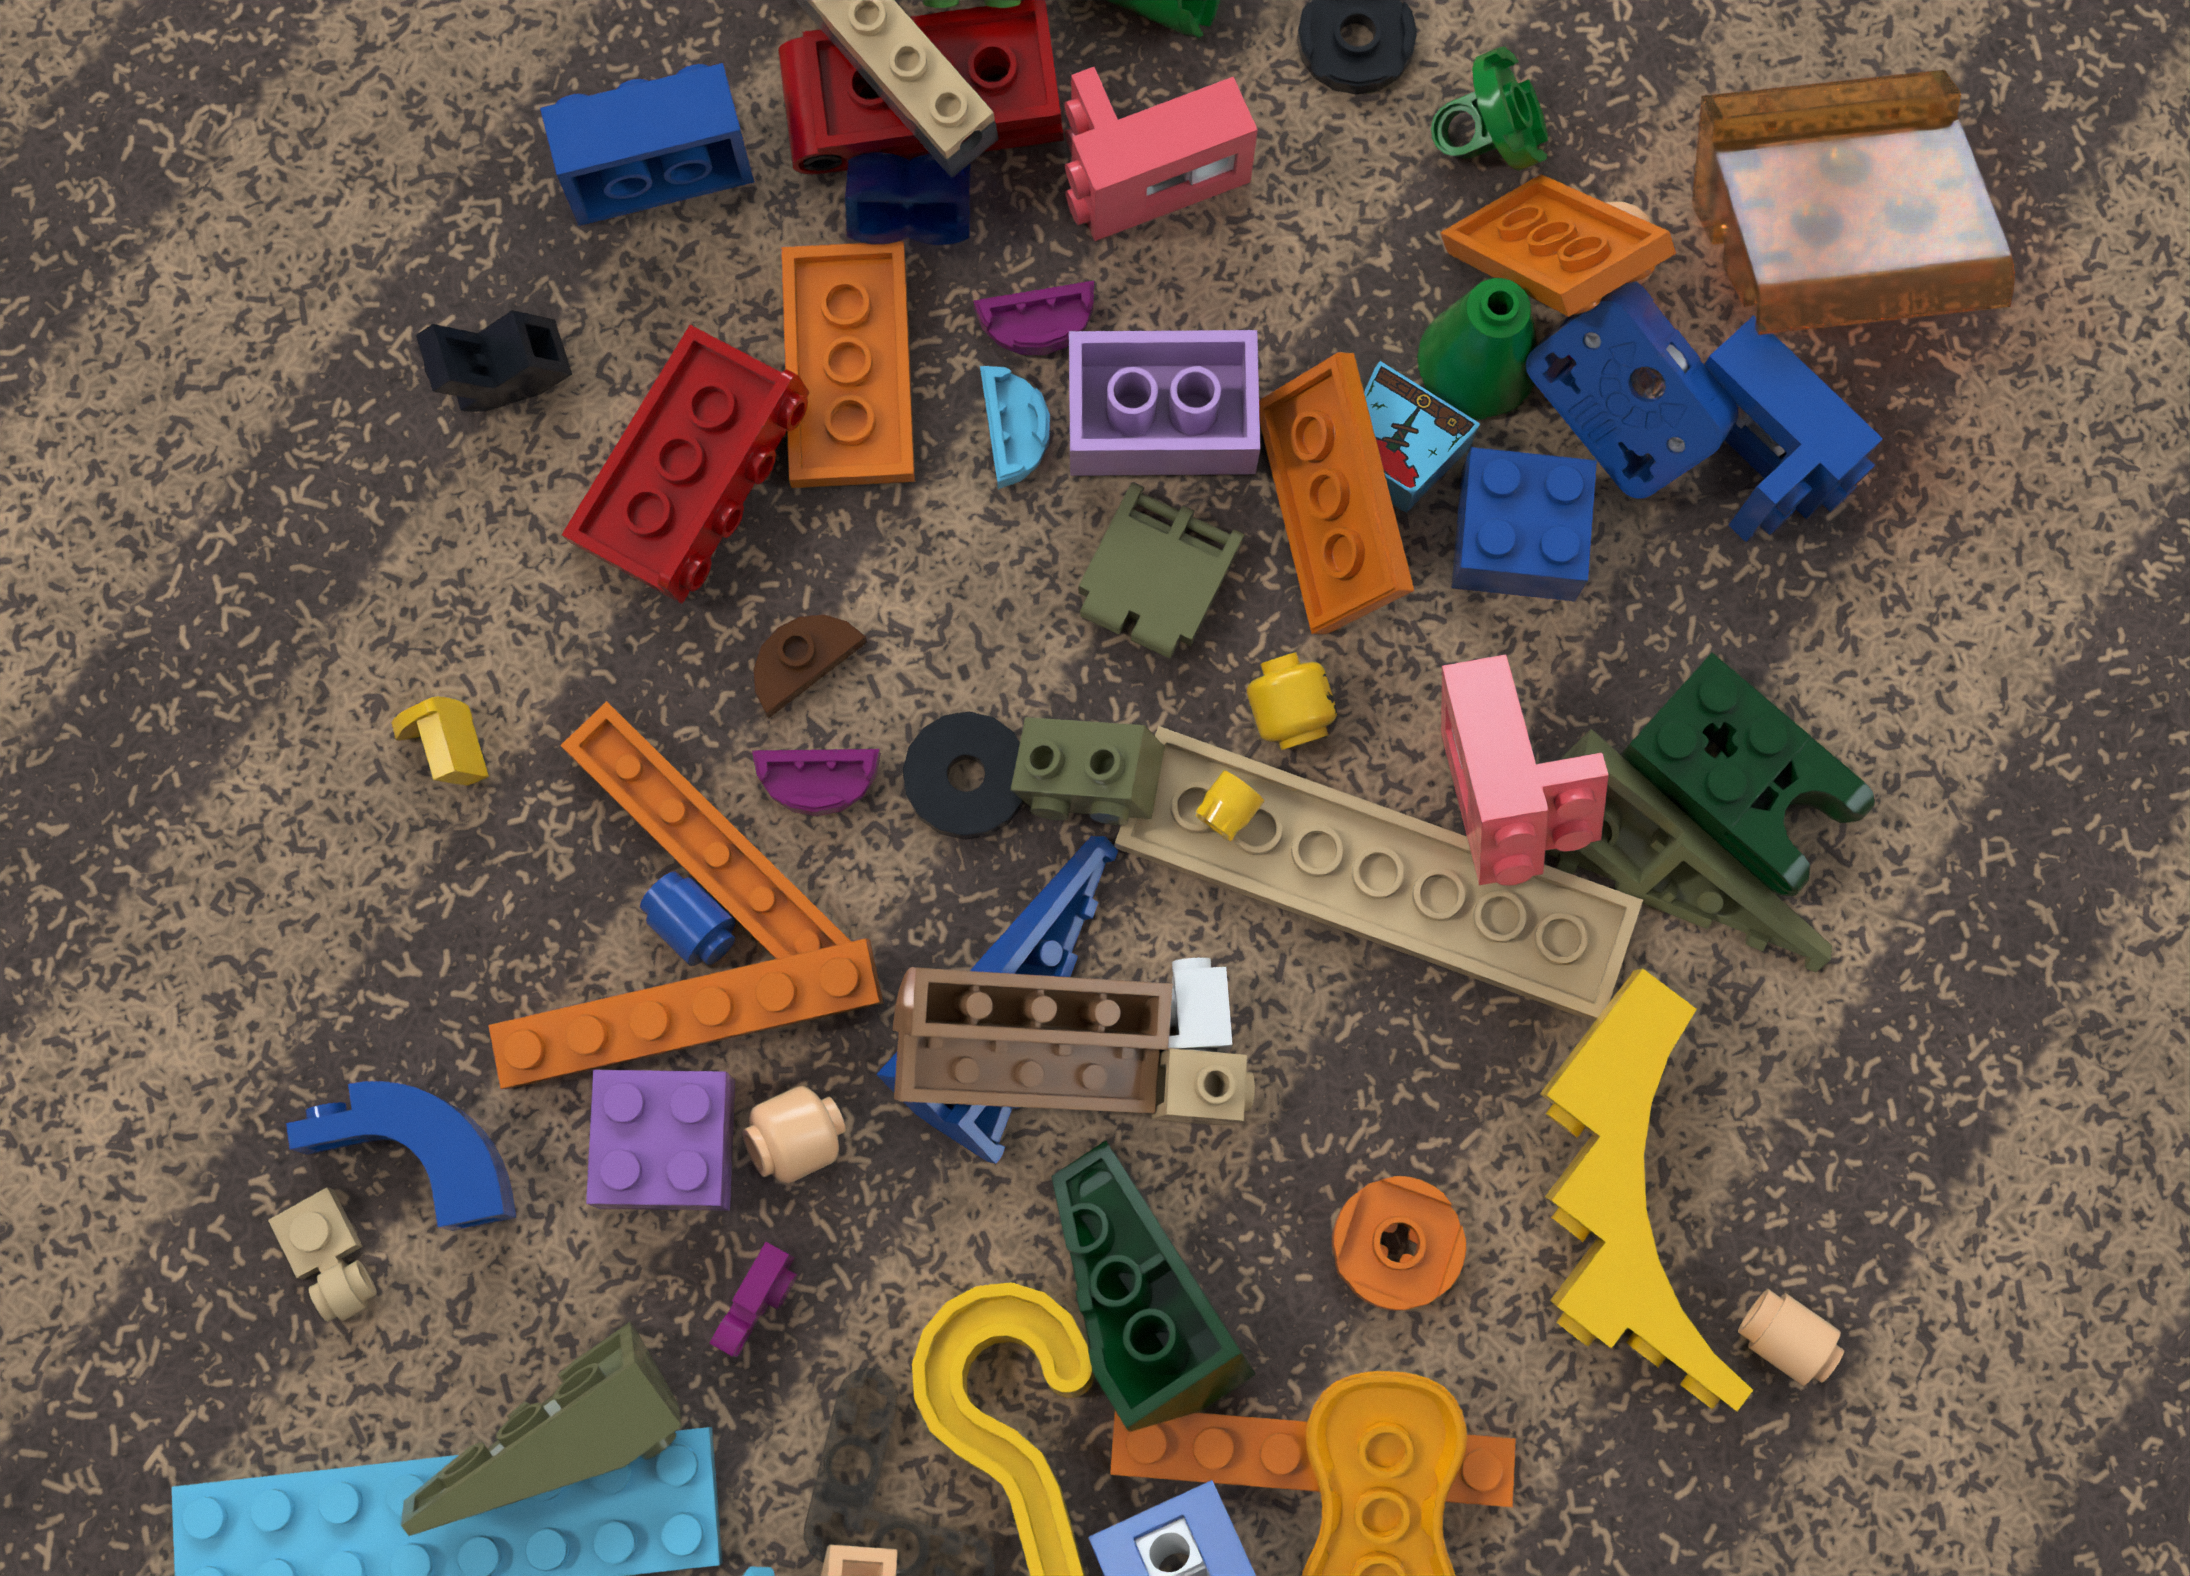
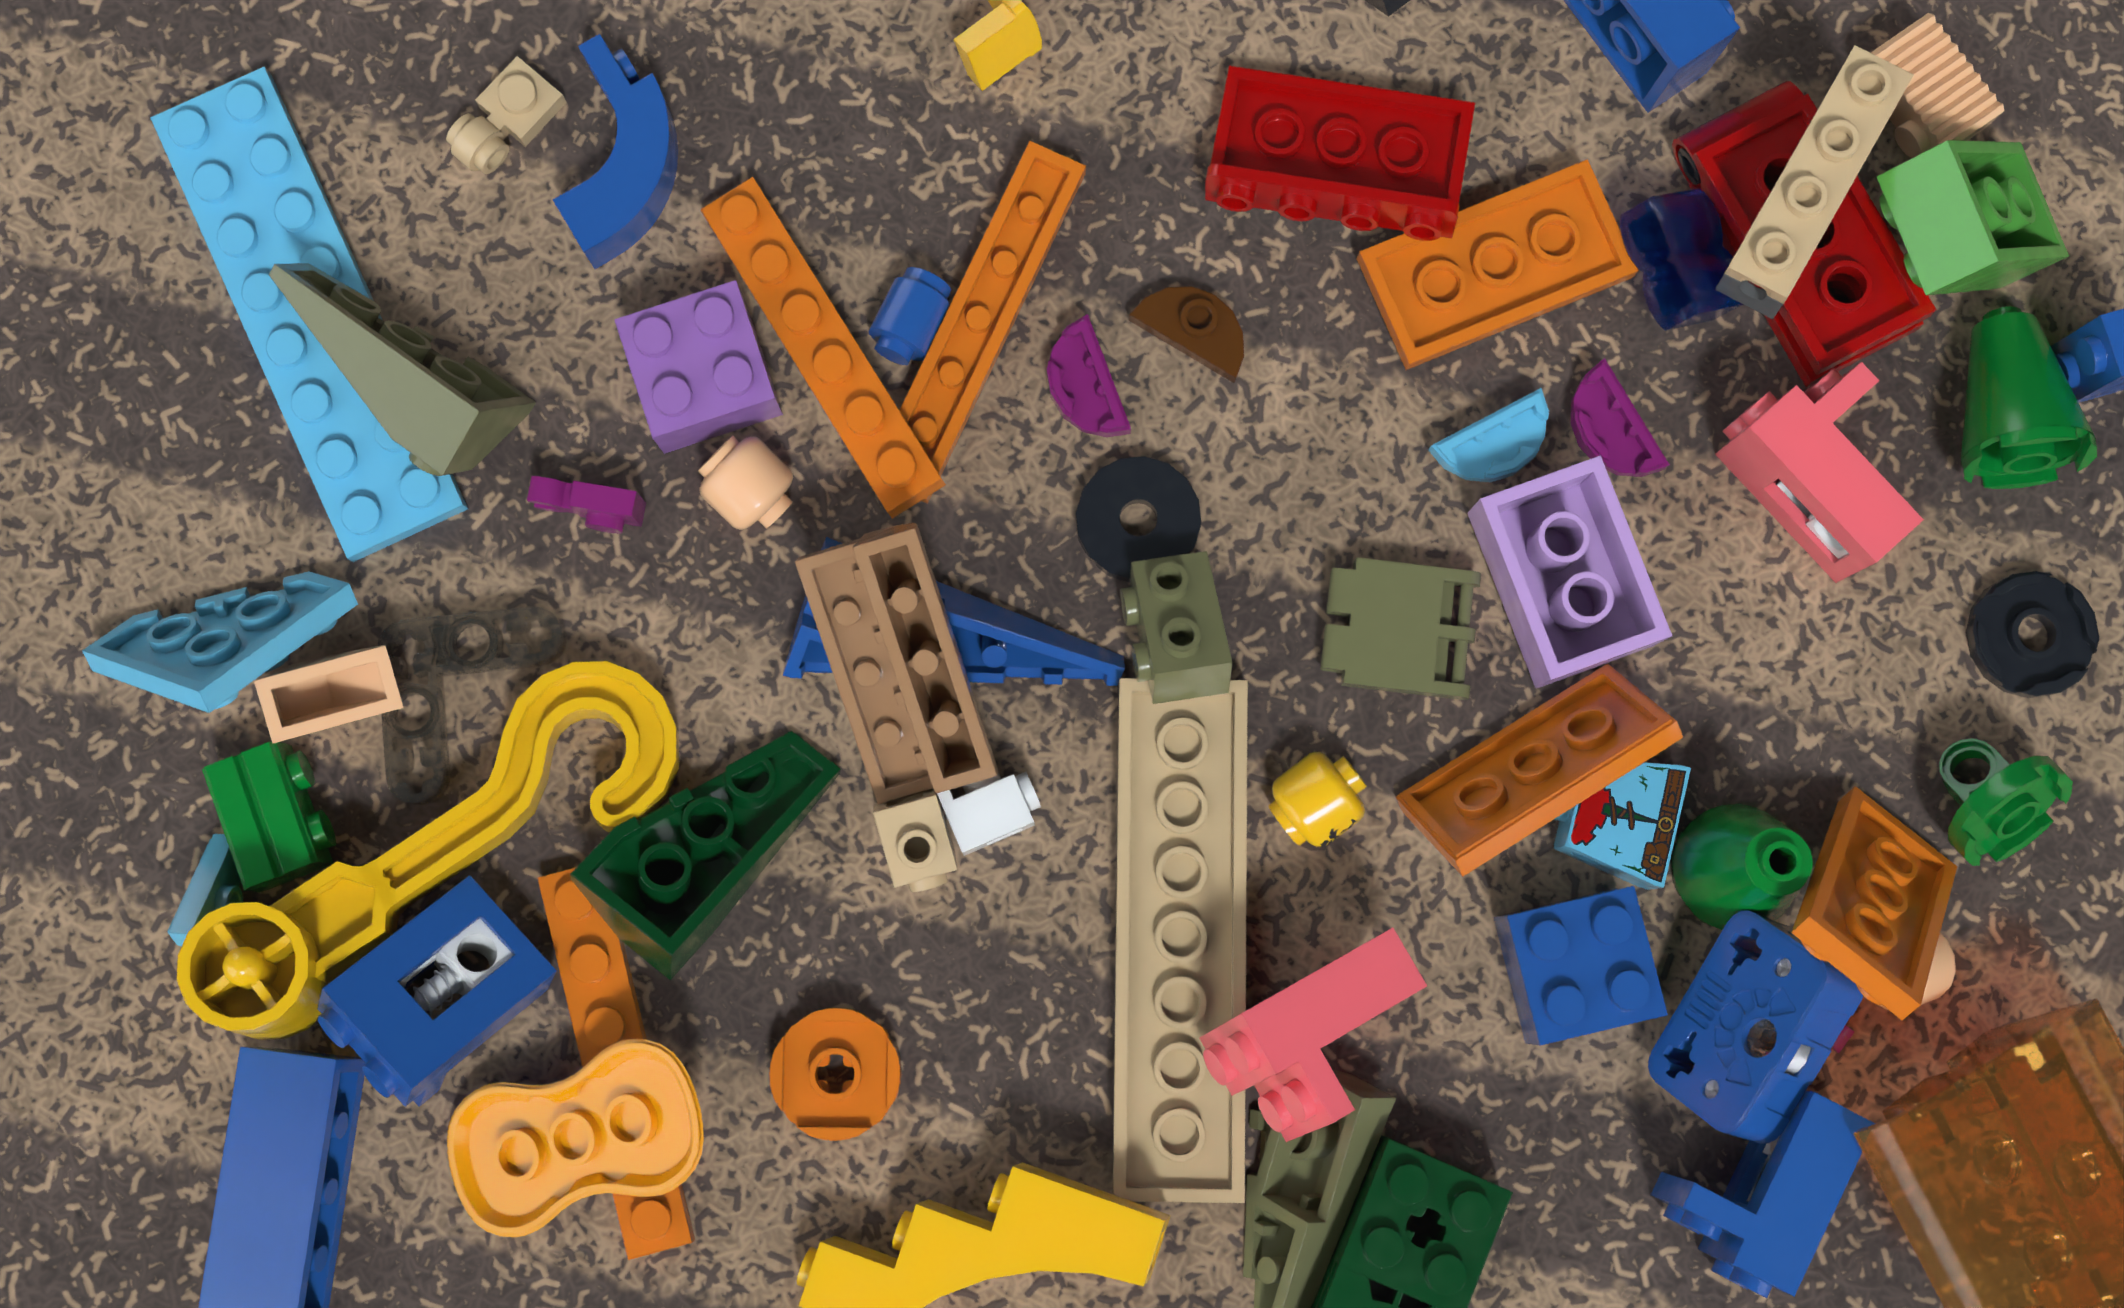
camera: 70 degrees right, 5 degrees up
(1229, 805) = (1189, 771): yellow hose -> none

